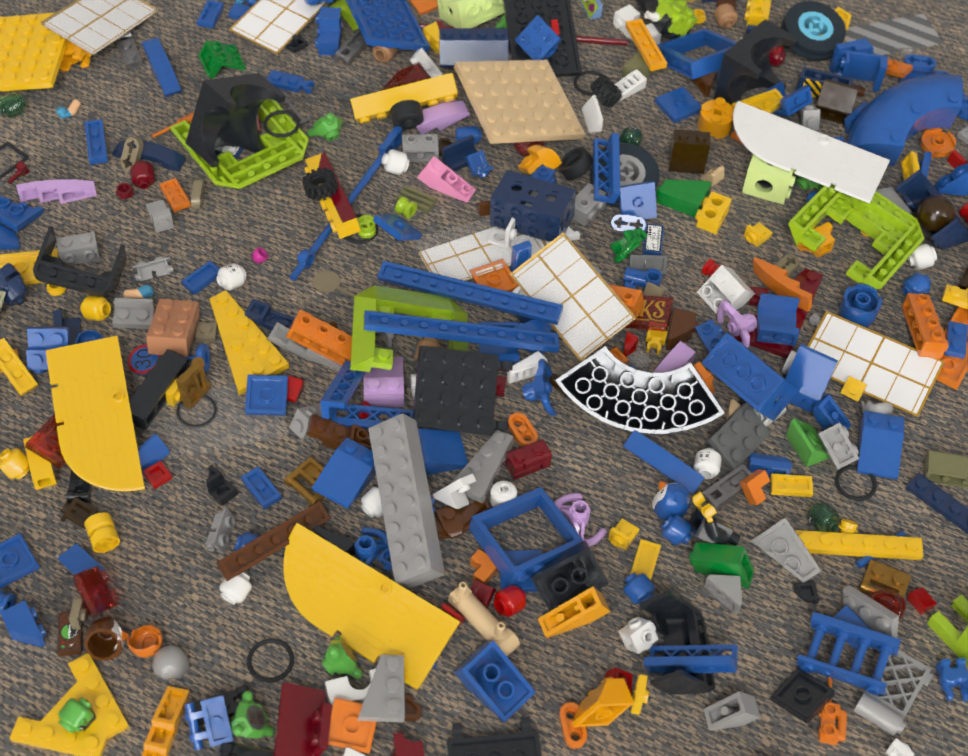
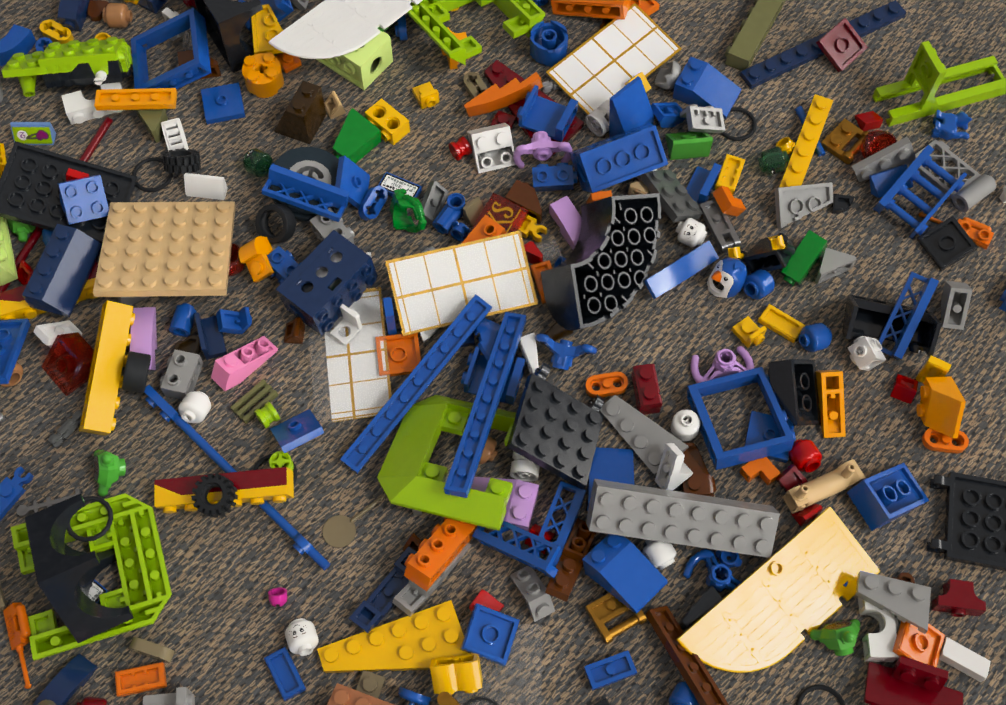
camera: 70 degrees left, 10 degrees up
(226, 377) = (456, 673): none -> yellow brick

